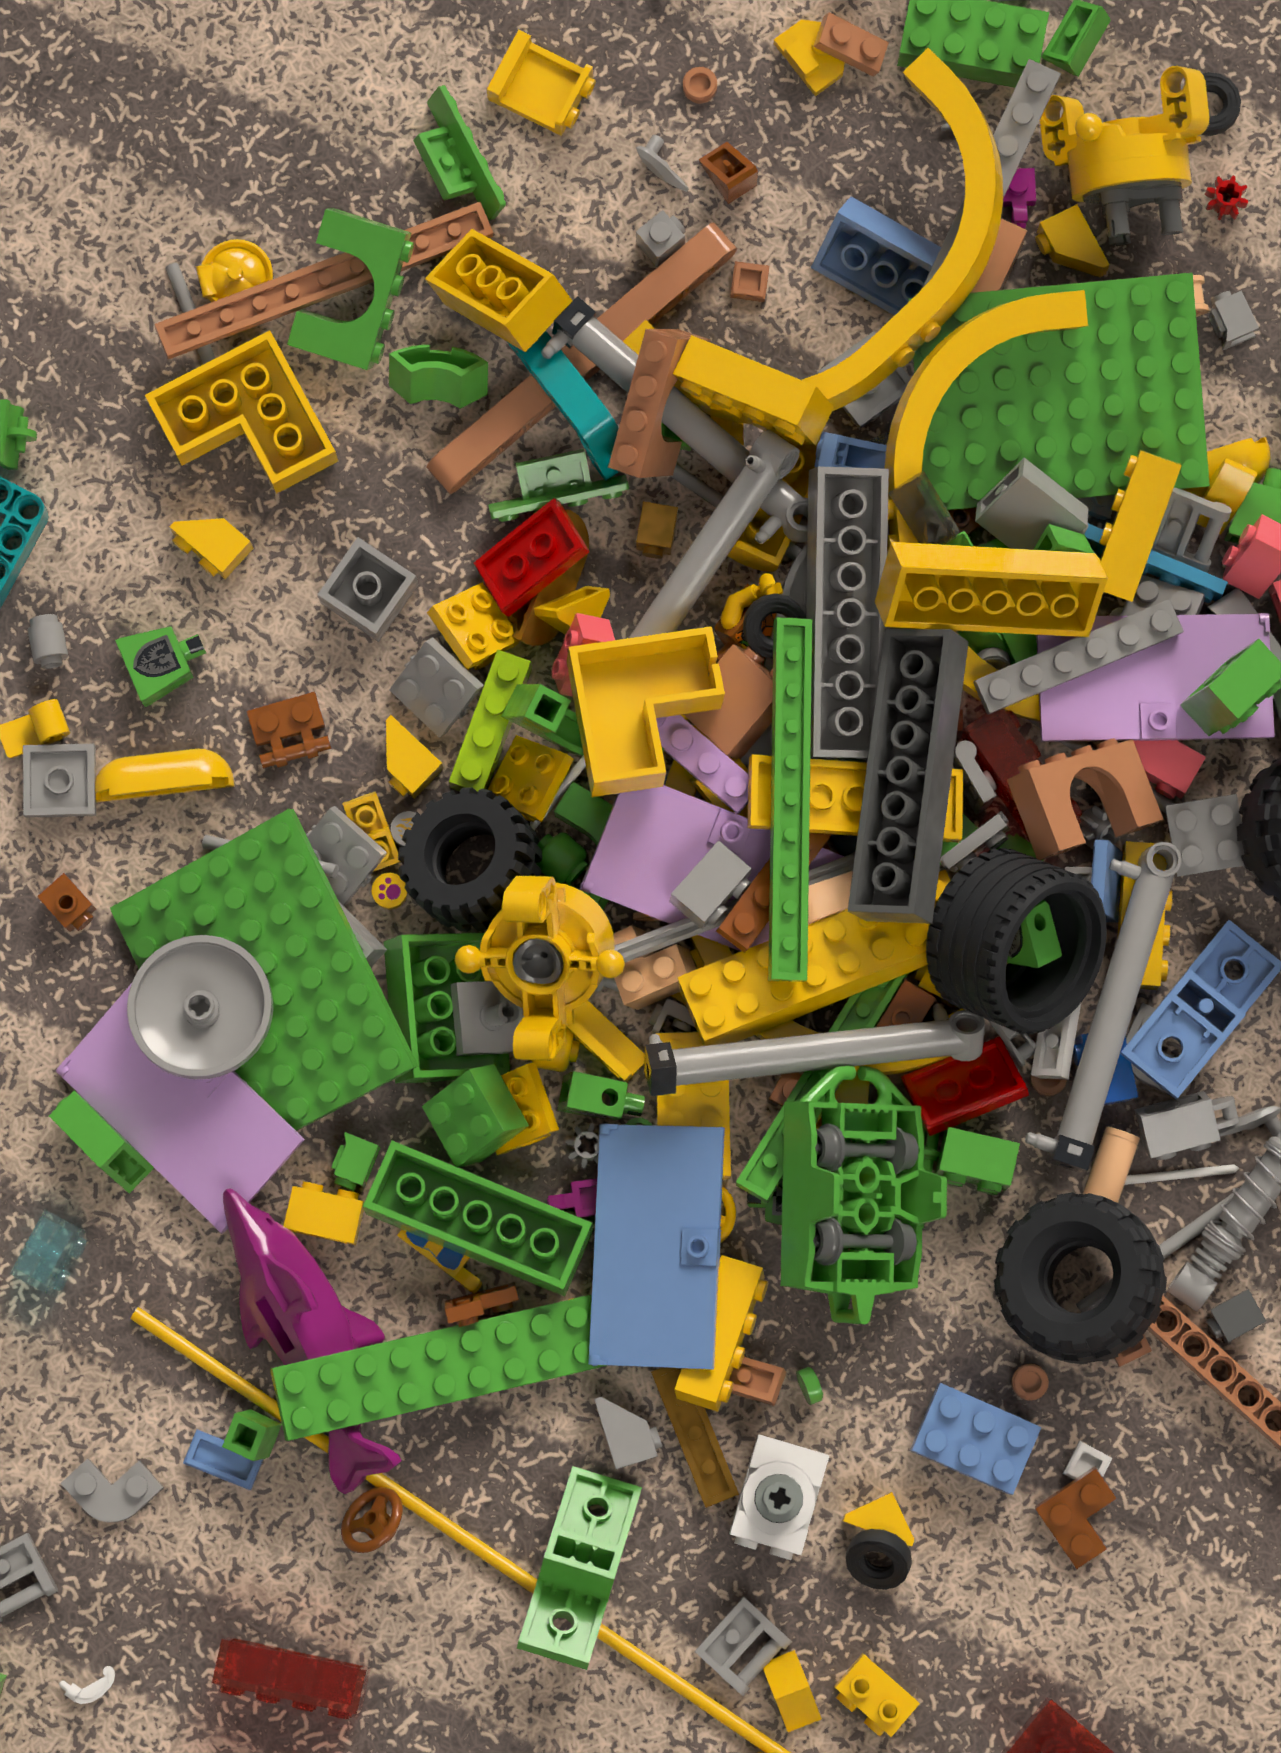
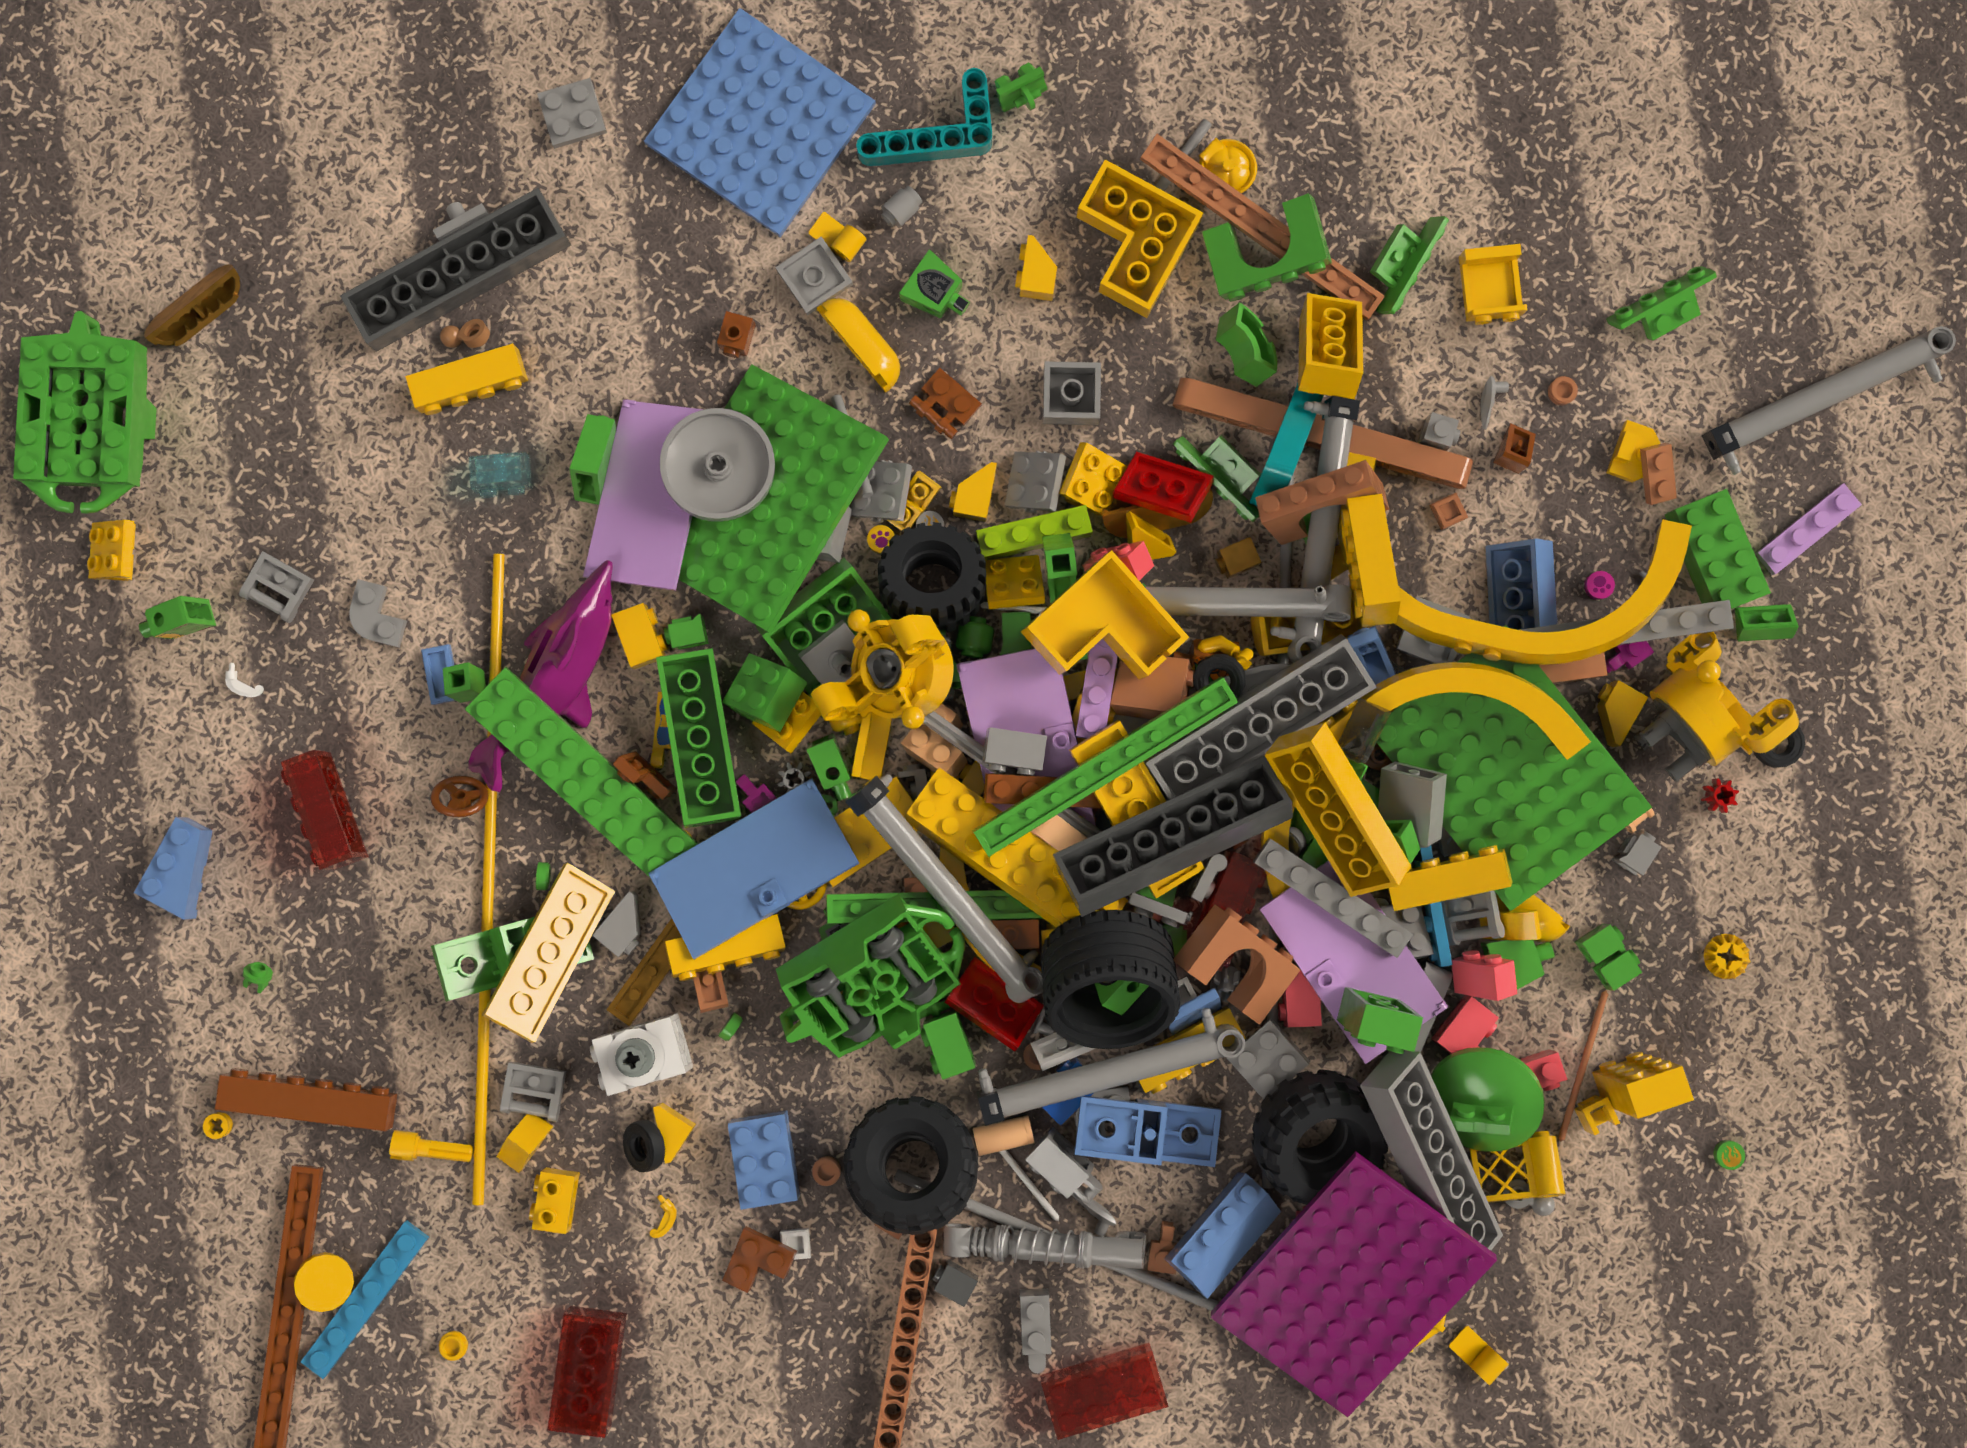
camera: 55 degrees right, 5 degrees up
(516, 1485) = (543, 876): none -> bright green tile
(606, 1523) = (548, 953): none -> plate
(928, 178) = (1599, 585): none -> dark pink tile
(974, 1588) = (668, 1218): none -> yellow piece

